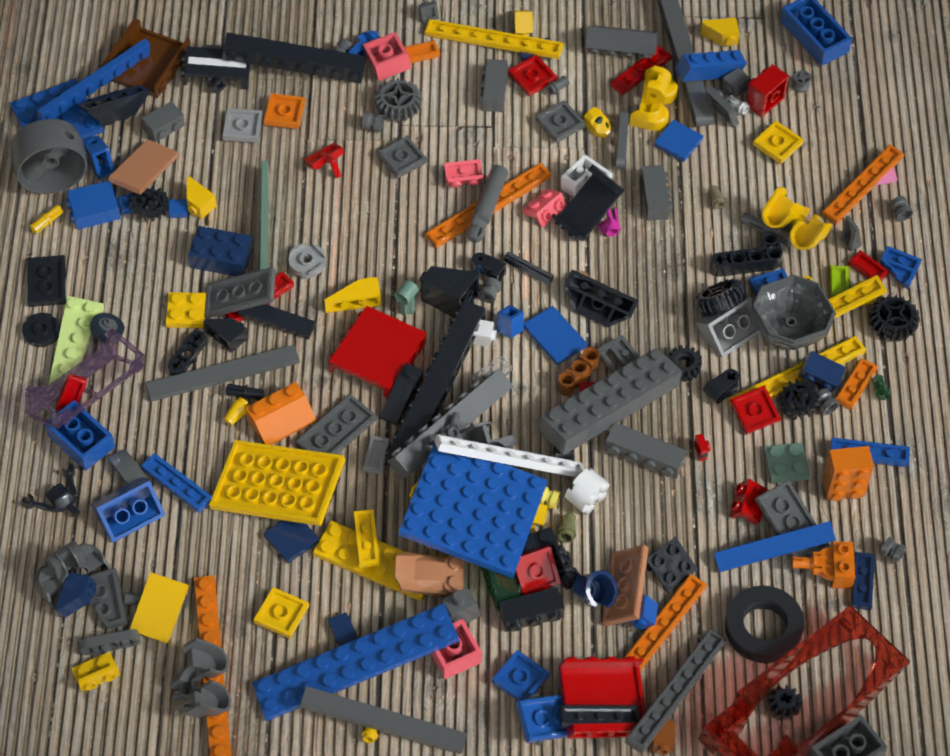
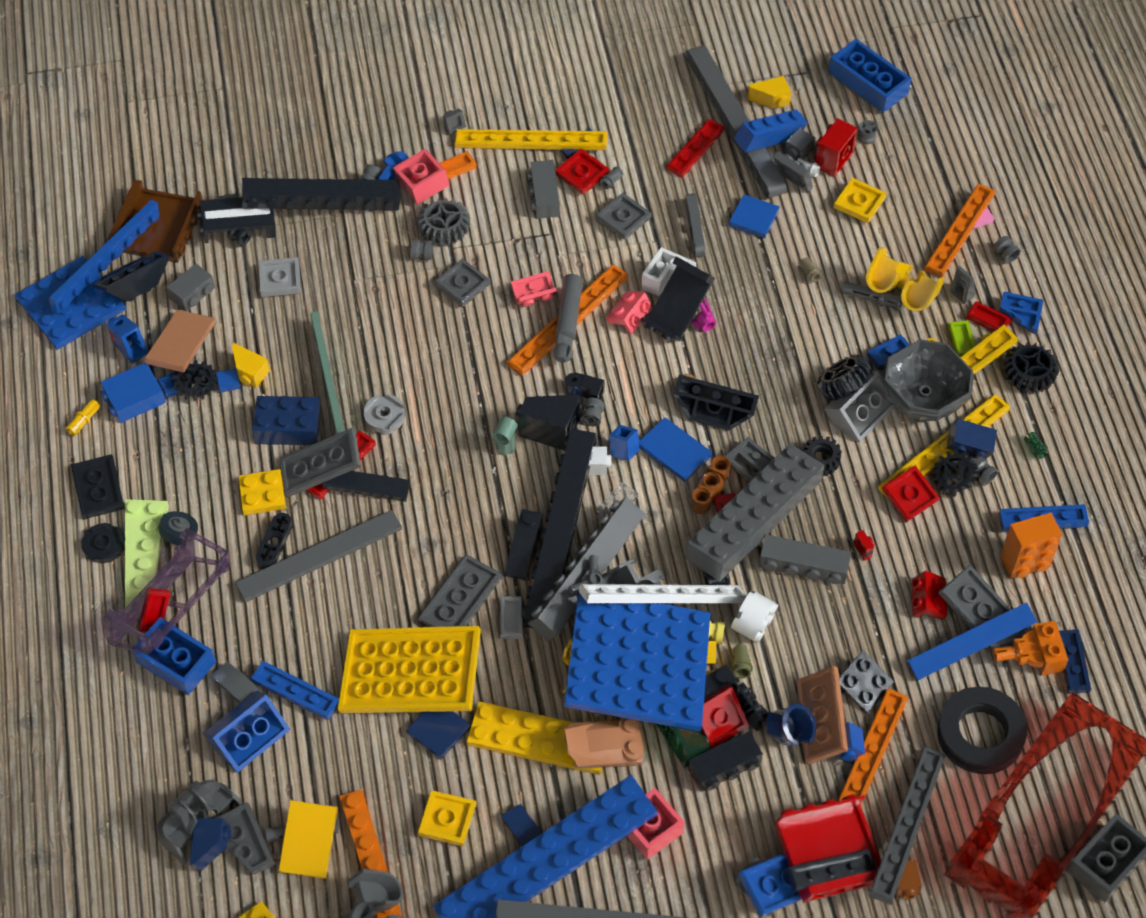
camera: 10 degrees left, 0 degrees up
(42, 146) = (61, 350): dark grey cylinder -> none
(58, 496) = (164, 730): black piece -> none
(109, 642) = (259, 890): dark grey beam -> none
(226, 332) = (313, 509): black slope -> none
(236, 411) = (345, 596): yellow cone -> none
(245, 391) = (349, 573): black axle -> none
(280, 414) = (394, 591): orange slope -> none
(284, 111) = (322, 254): orange plate -> none
(326, 155) = (380, 293): red plate -> none
(355, 296) = (450, 442): yellow slope -> none
(366, 538) = (524, 715): yellow plate -> none
(377, 348) = (486, 499): red panel -> none
(461, 606) = (649, 772): dark grey torso -> none
(520, 677) = (732, 841): blue plate -> none
(523, 22) = (558, 116): yellow slope -> none
(529, 268) = (628, 380): black axle -> none
(597, 123) = (664, 211): yellow rock -> none
(622, 39) = (669, 119): dark grey slope -> none
(656, 192) = (745, 276): dark grey brick -> none
(658, 90) = (721, 168): yellow piece -> none
(722, 386) = (869, 473): black piece -> none
(751, 260) = (876, 327): black beam -> none
(784, 702) = (1026, 814): black gear -> none
(786, 462) = (958, 545): sand green plate -> none
(856, 383) = (1009, 445): orange tile -> none
(893, 550) = (1102, 624): dark grey wheel -> none

